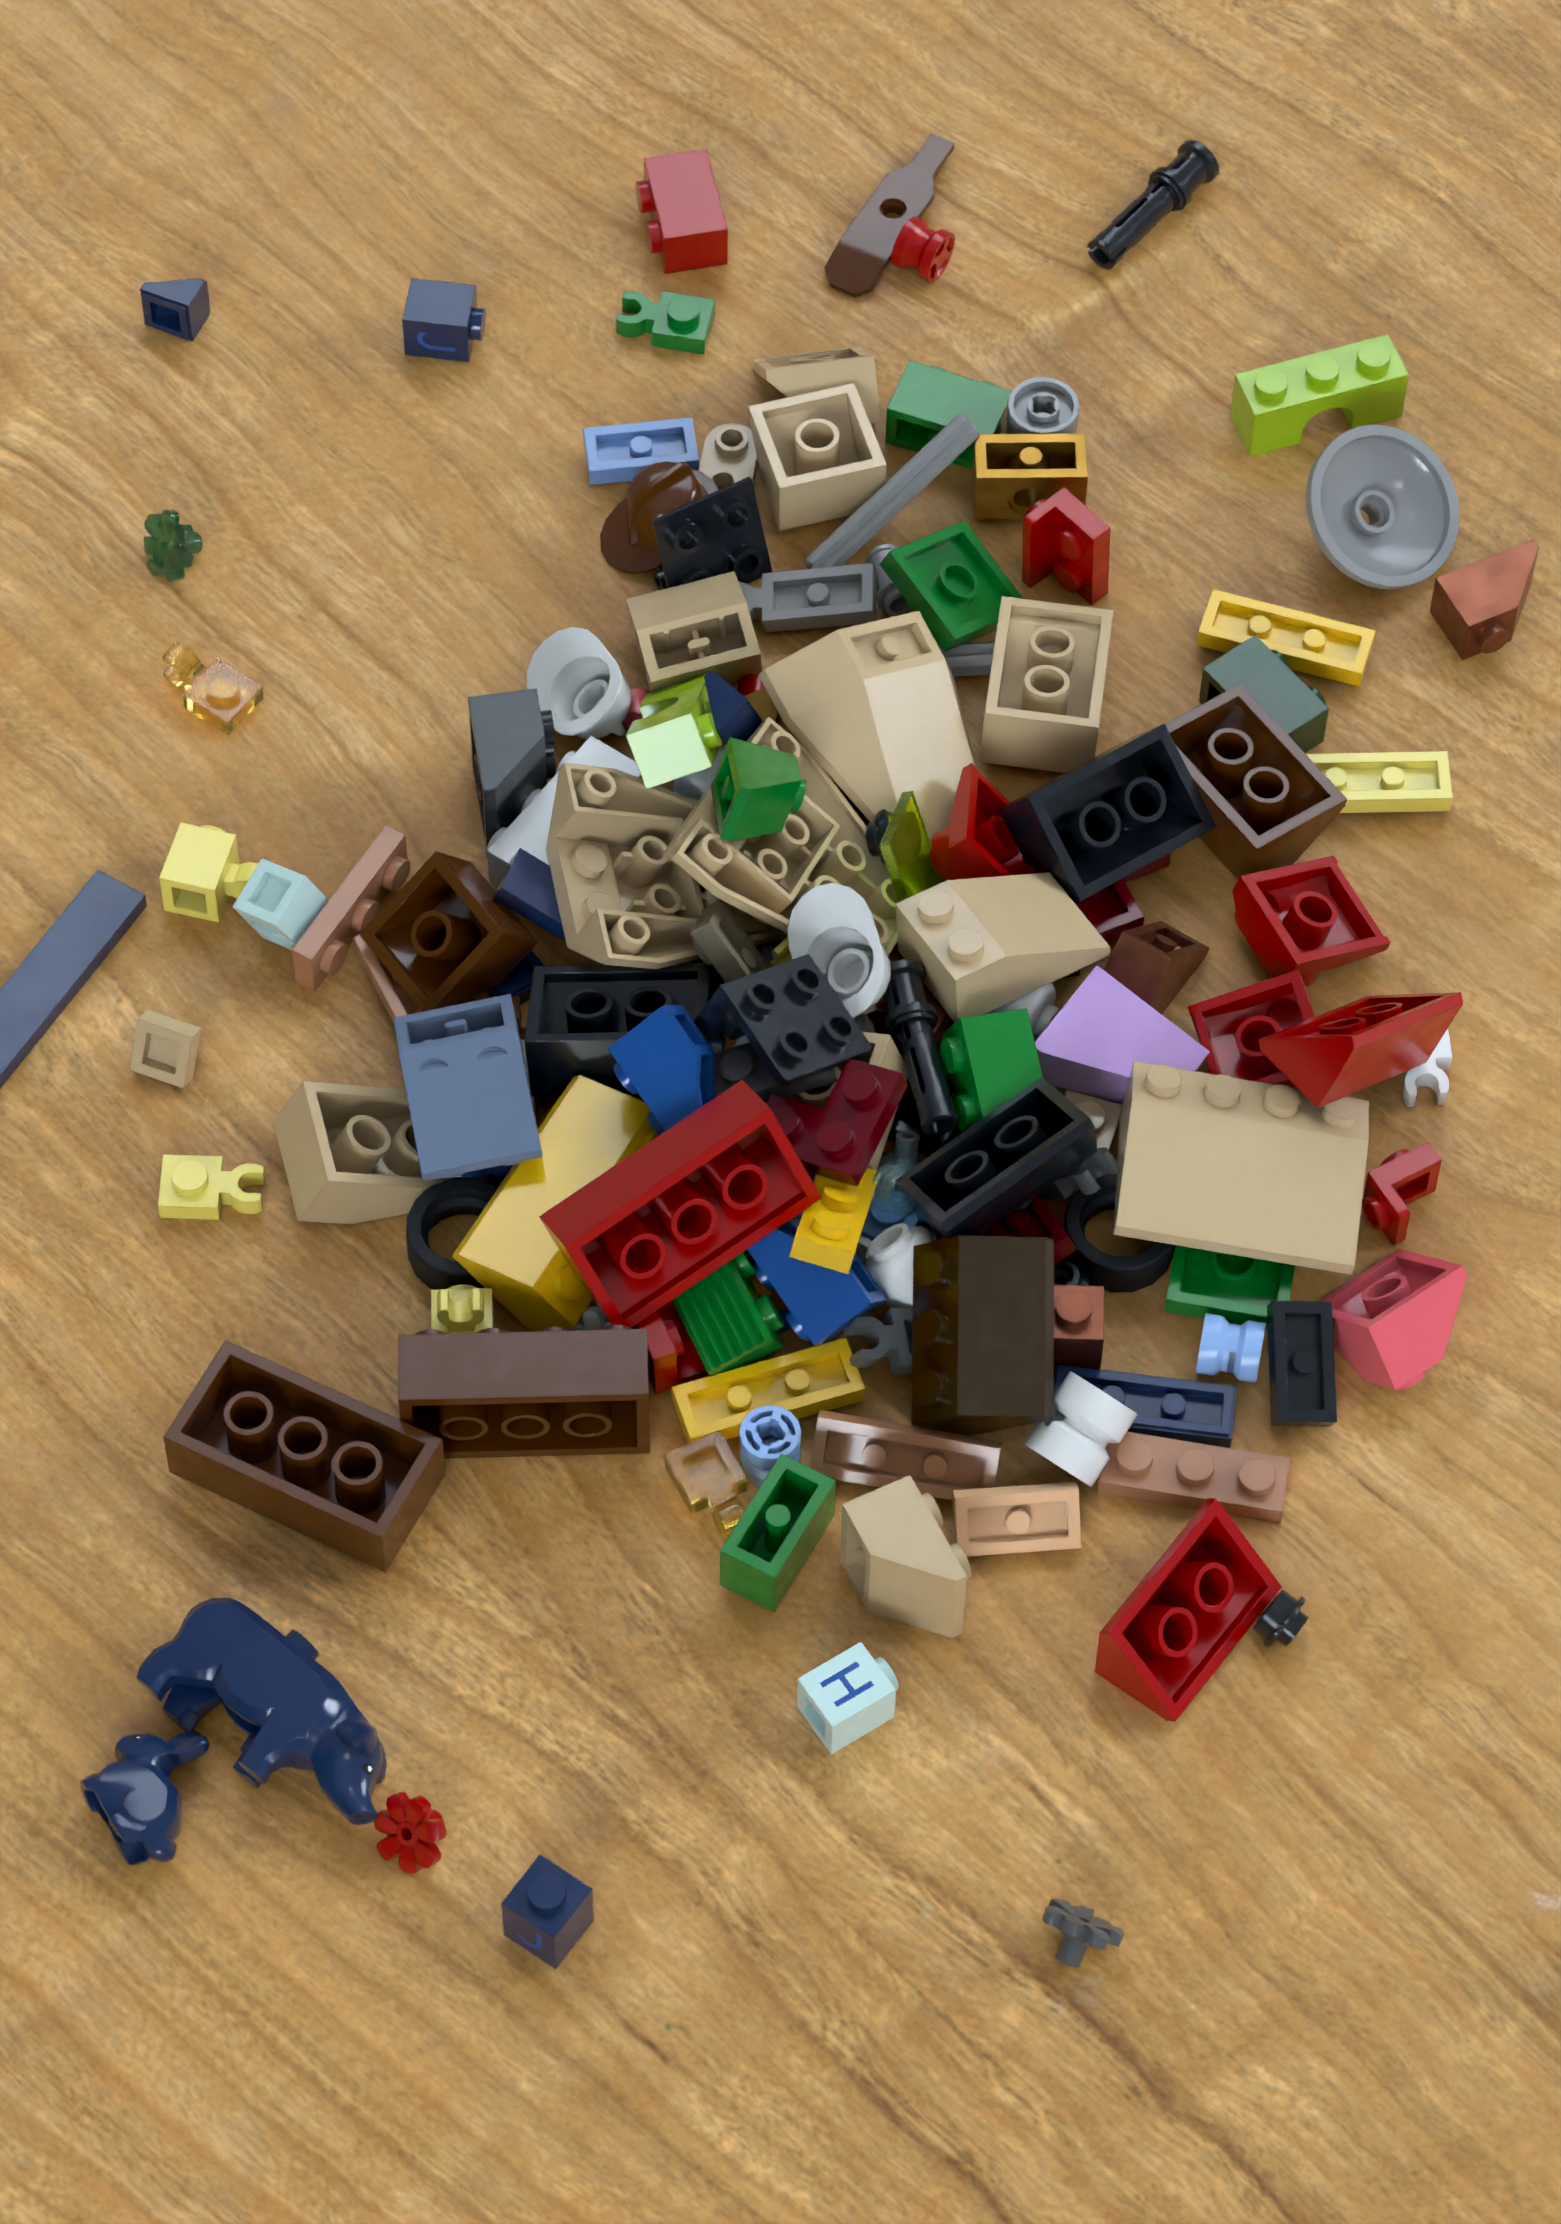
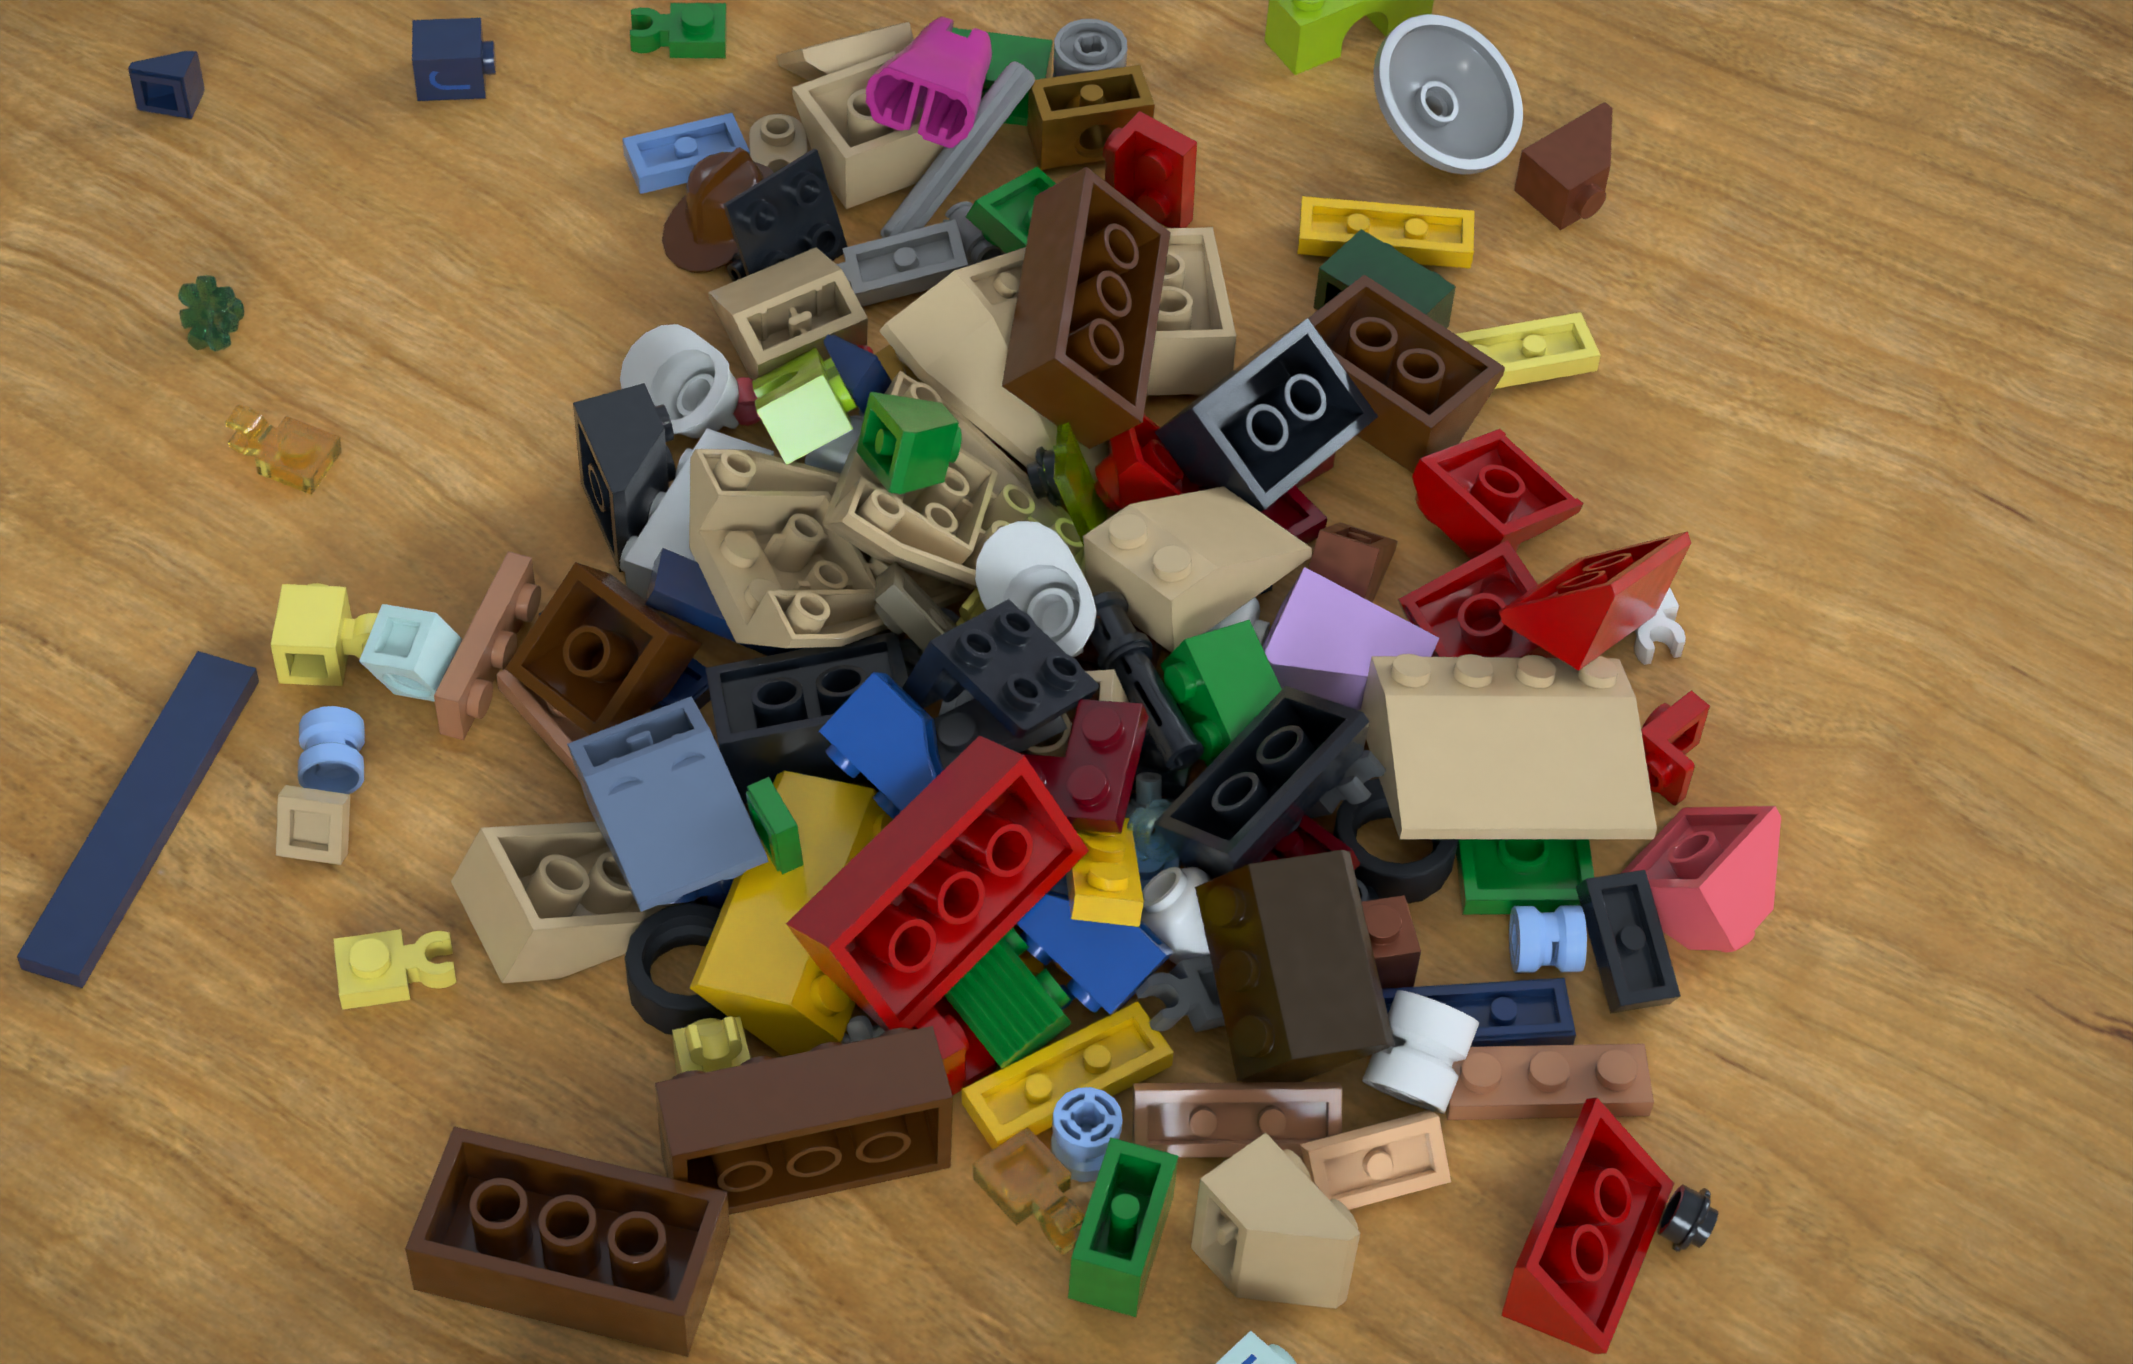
camera: 15 degrees left, 5 degrees down
(194, 986) = (333, 741): none -> light blue wheel
(553, 1126) = (774, 826): none -> green tile
(880, 423) = (937, 74): none -> dark pink piece
(955, 683) = (1087, 309): none -> reddish brown brick

